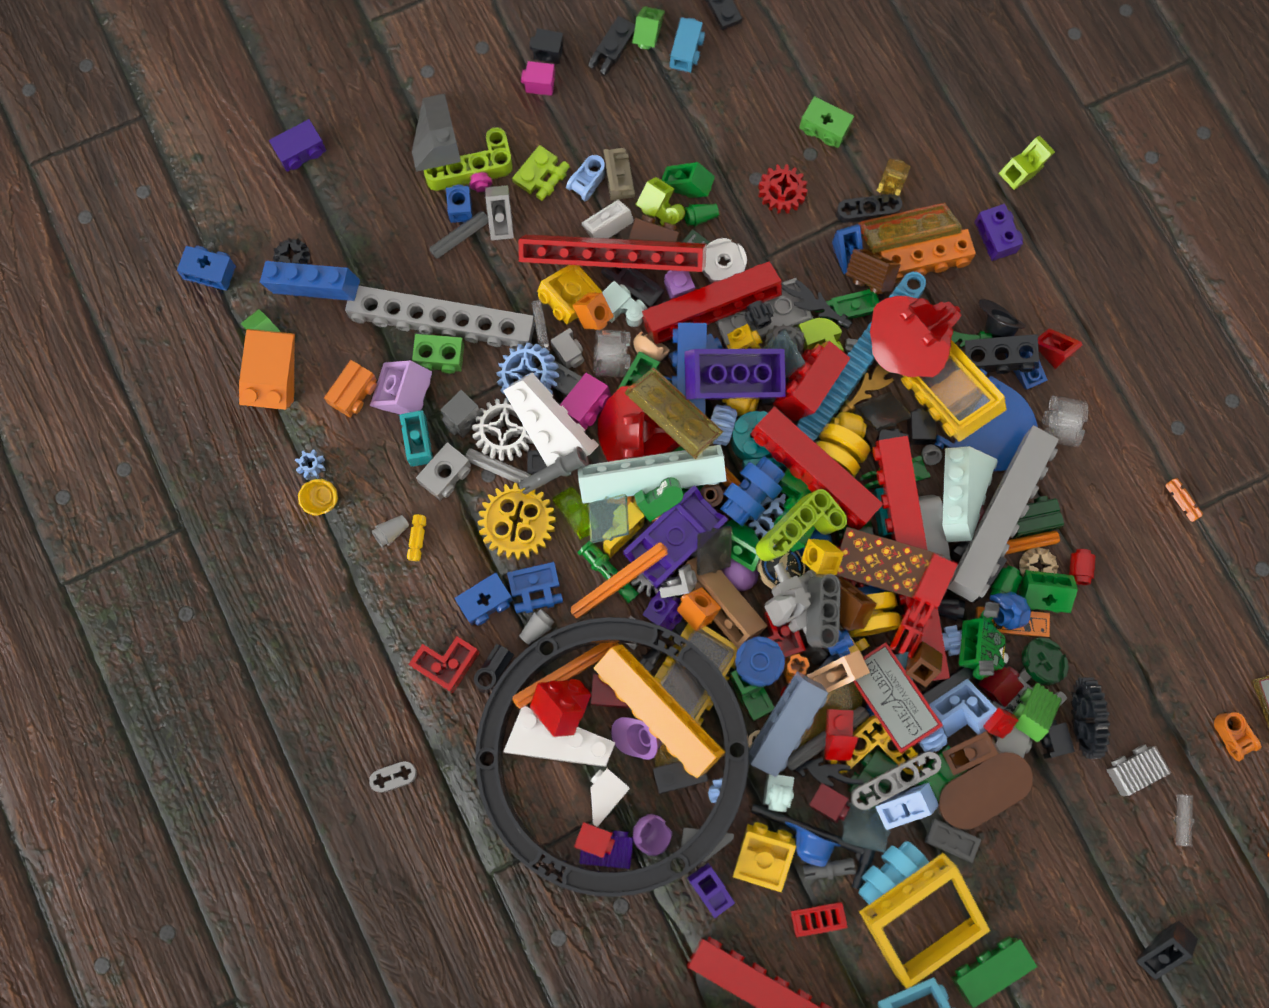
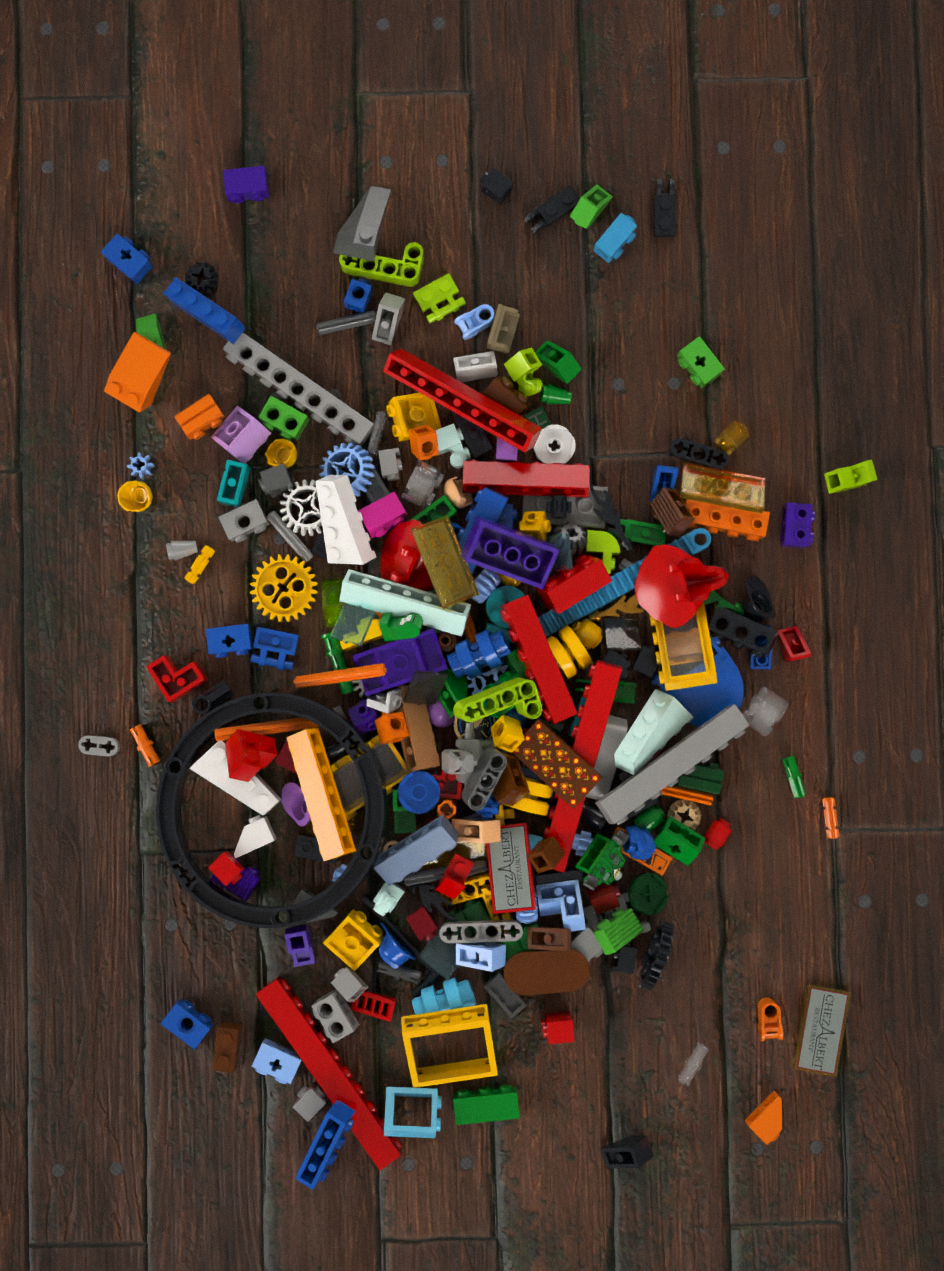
camera: 25 degrees right, 10 degrees up
(442, 753) = (145, 745): none -> orange pin
(450, 384) = (281, 452): none -> yellow hair
(480, 181) = (384, 284): dark pink plate -> none
(536, 627) = (263, 679): light grey cone -> none
(539, 78) = (475, 212): dark pink brick -> none
(562, 466) = (335, 564): dark grey pin -> none
(651, 835) = (275, 883): medium lavender hair -> none
(782, 908) = (349, 984): none -> light grey brick
(788, 946) = (340, 1013): none -> light grey brick
(793, 187) = (627, 400): red gear -> none
(928, 592) = (575, 803): red arm -> none
(929, 456) = (643, 686): light grey hinge -> none
(1000, 723) = (582, 928): red plate -> none
(1027, 846) = (558, 1027): none -> red brick
(1127, 475) = (794, 777): none -> green axle
(1137, 770) = (677, 1010): light grey brick -> none

